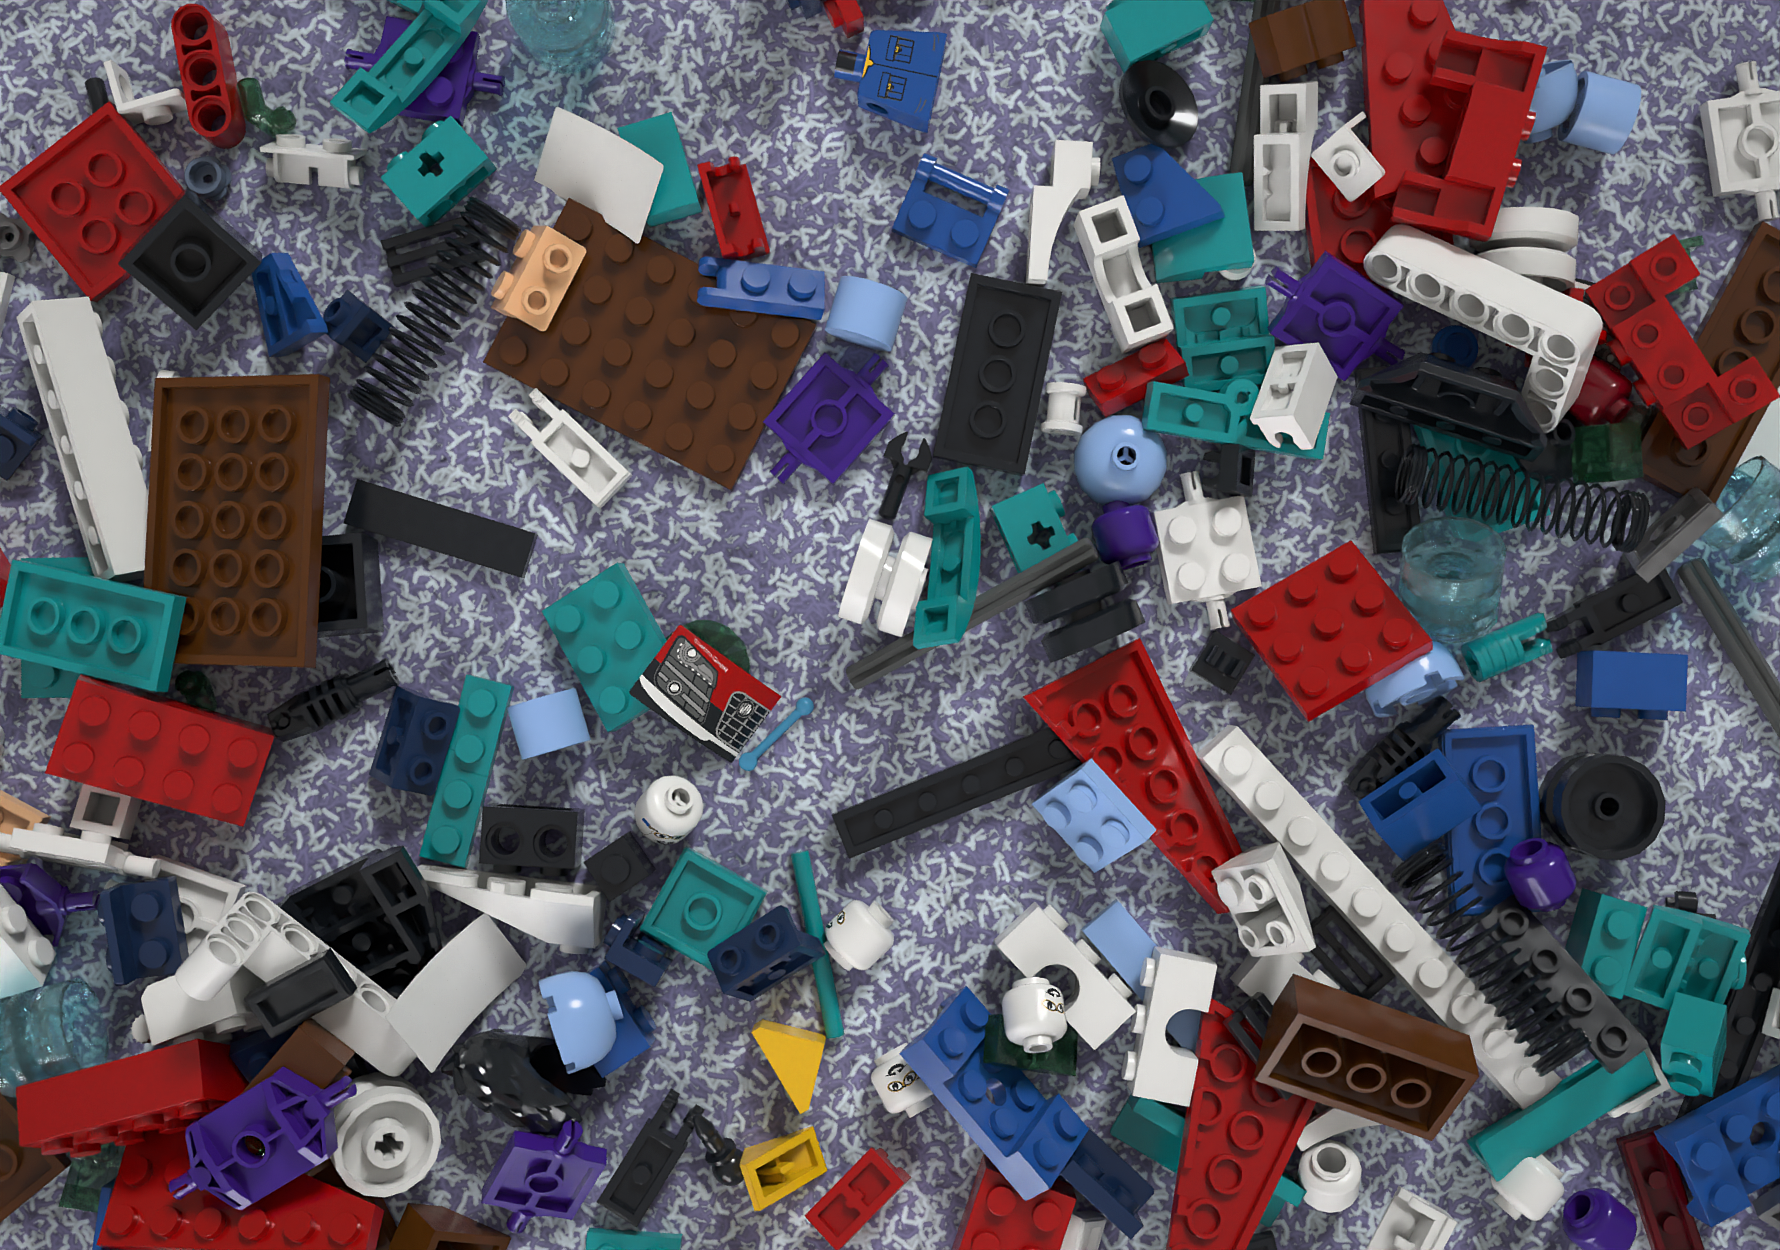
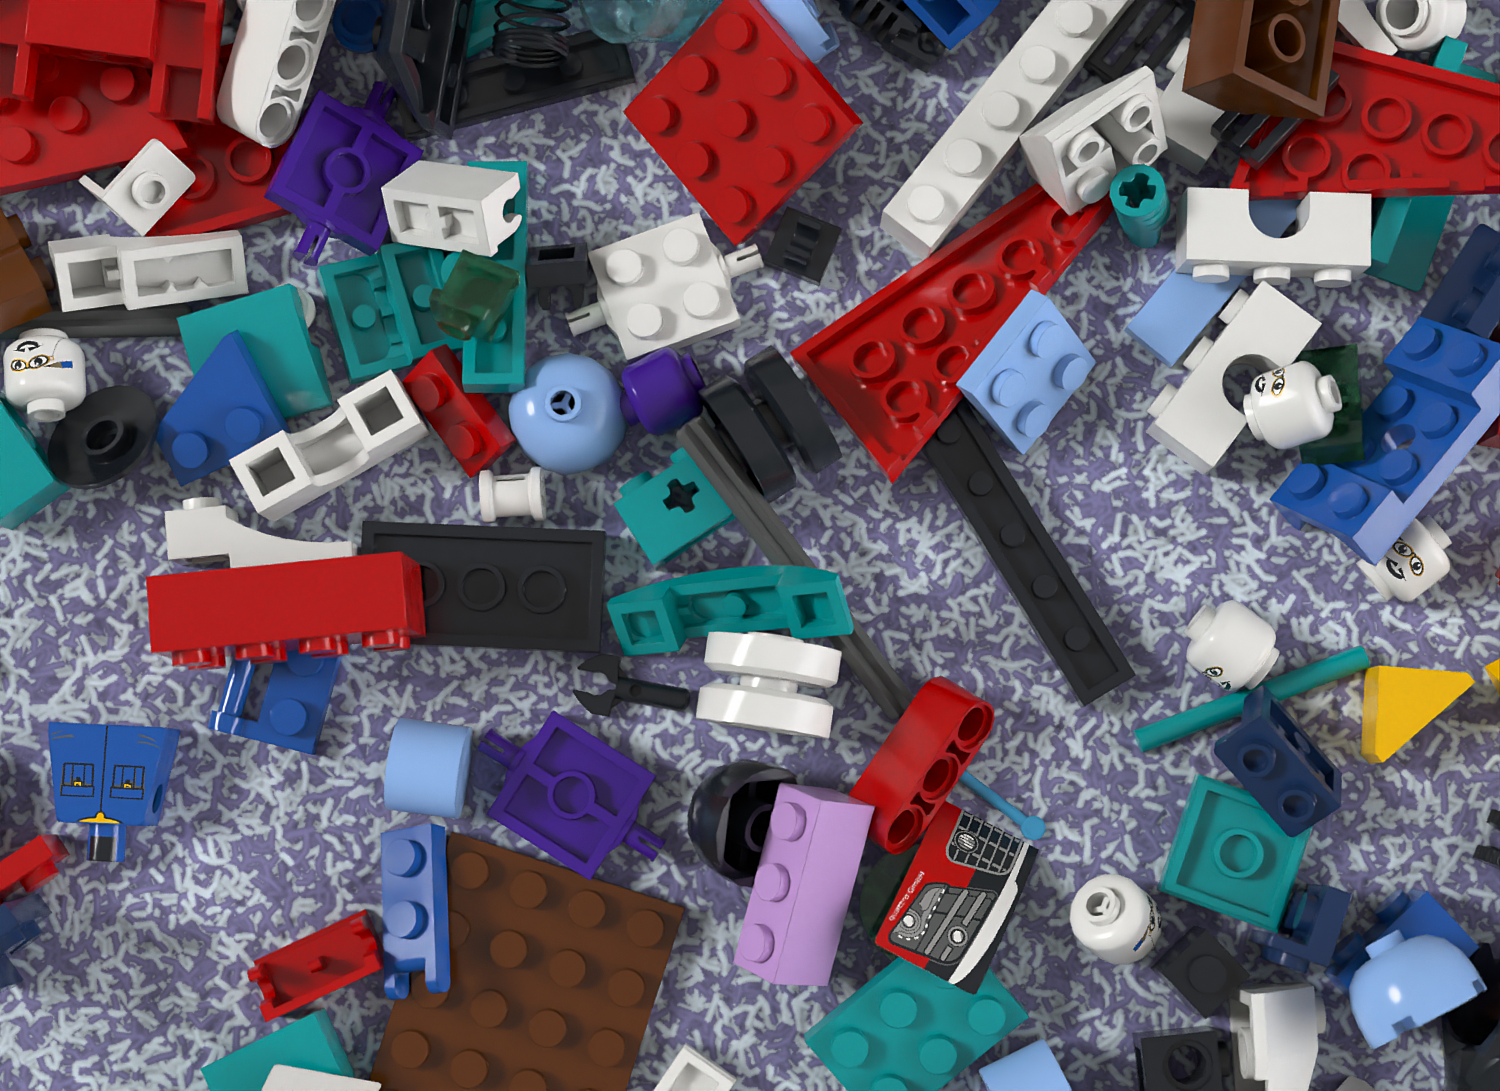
camera: 90 degrees left, 5 degrees down
(732, 579) = (803, 885): none -> lavender brick
(786, 547) = (733, 815): none -> black cylinder
(808, 682) = (922, 761): none -> red beam
(1003, 216) = (284, 608): none -> red brick
(1208, 938) = (1148, 192): none -> teal hinge
(1214, 66) = (44, 374): none -> white head
(1218, 400) = (474, 297): none -> clear green bracket

